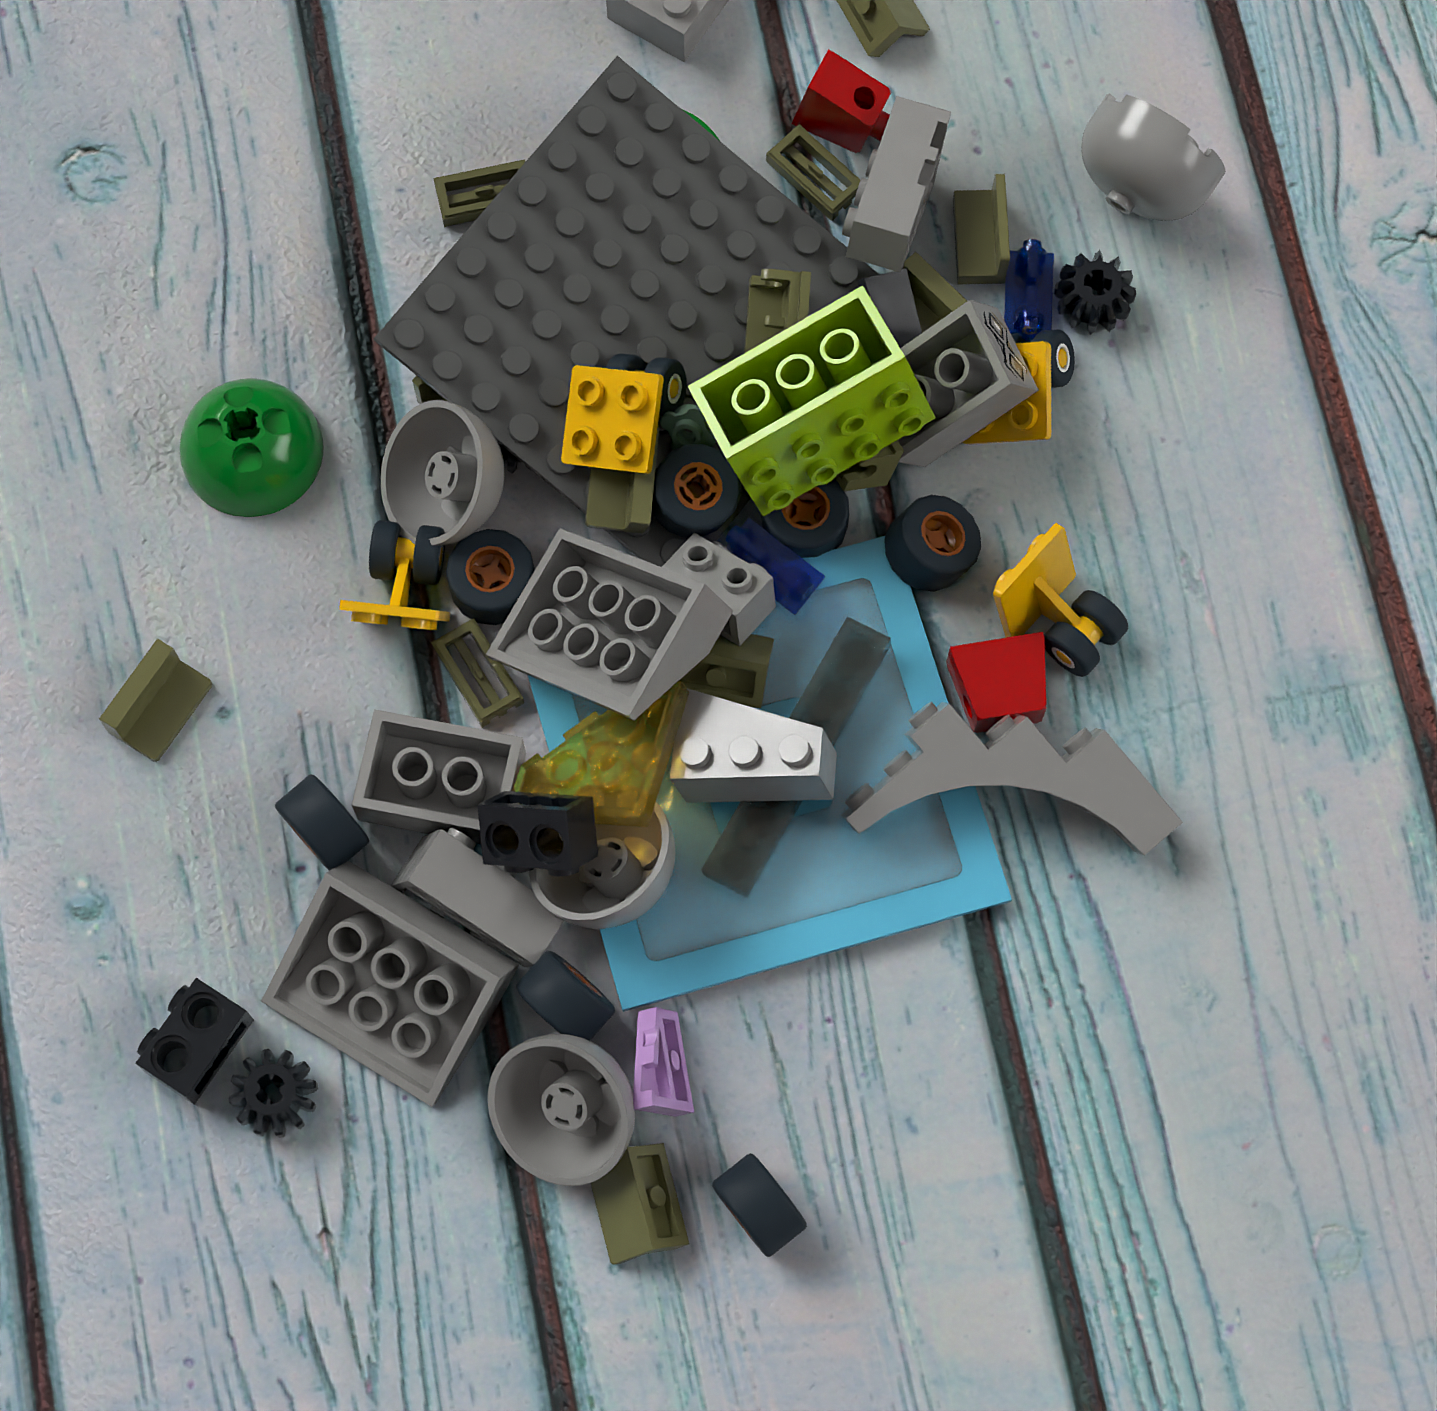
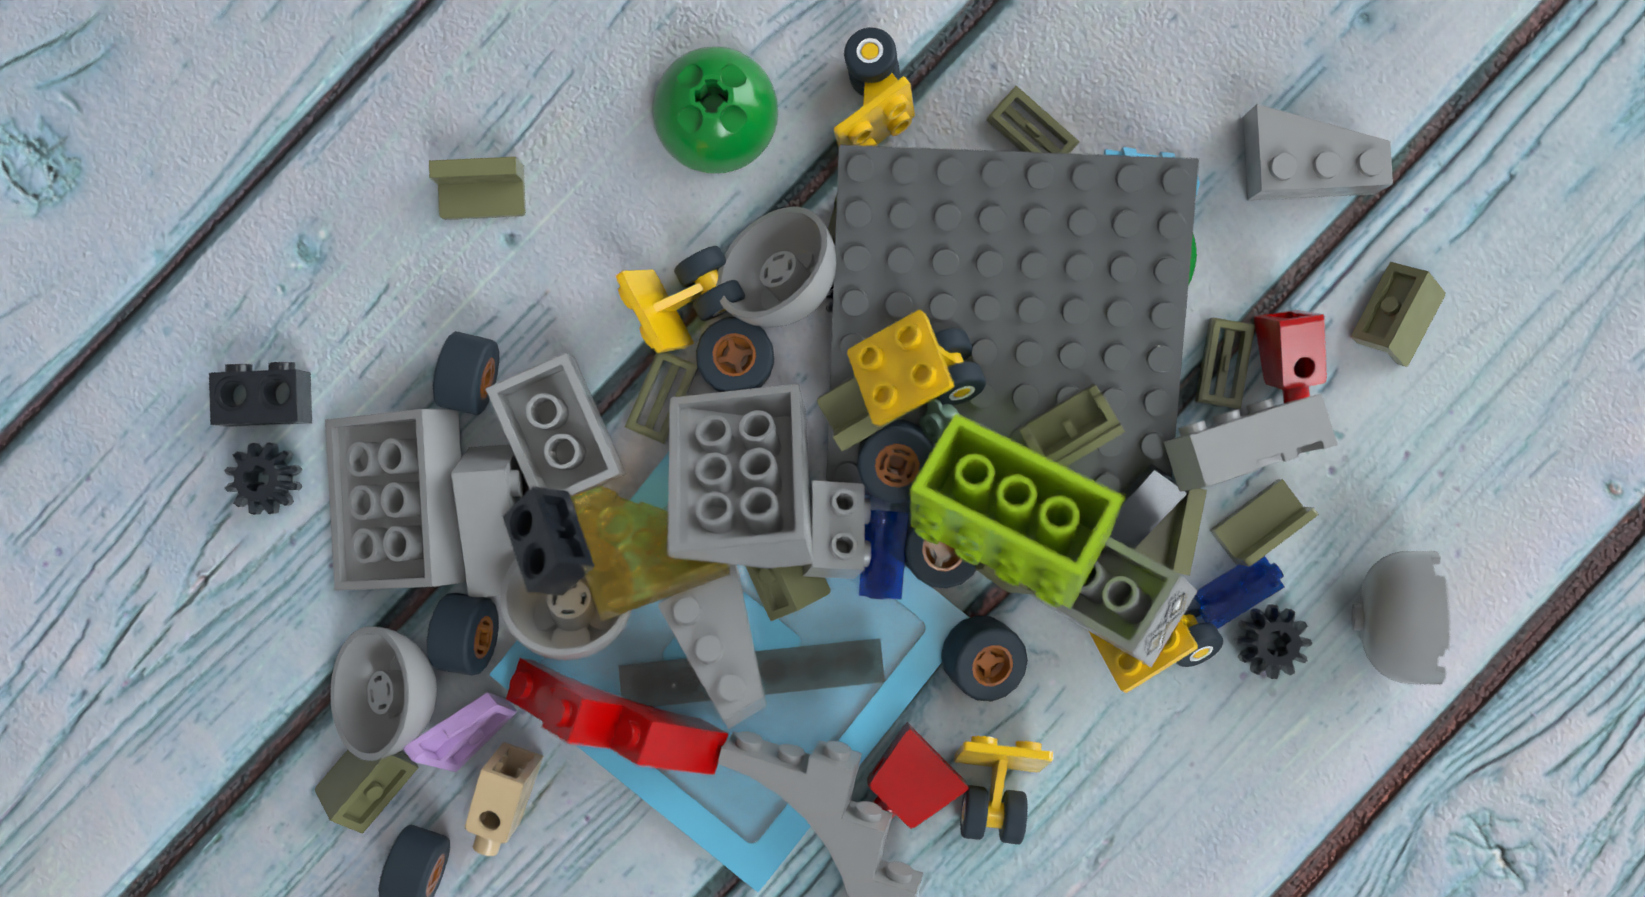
camera: 55 degrees right, 15 degrees up
(331, 287) = (875, 76): none -> yellow plate
(735, 1056) = (501, 797): none -> tan torso
(745, 898) = (604, 720): none -> red arch

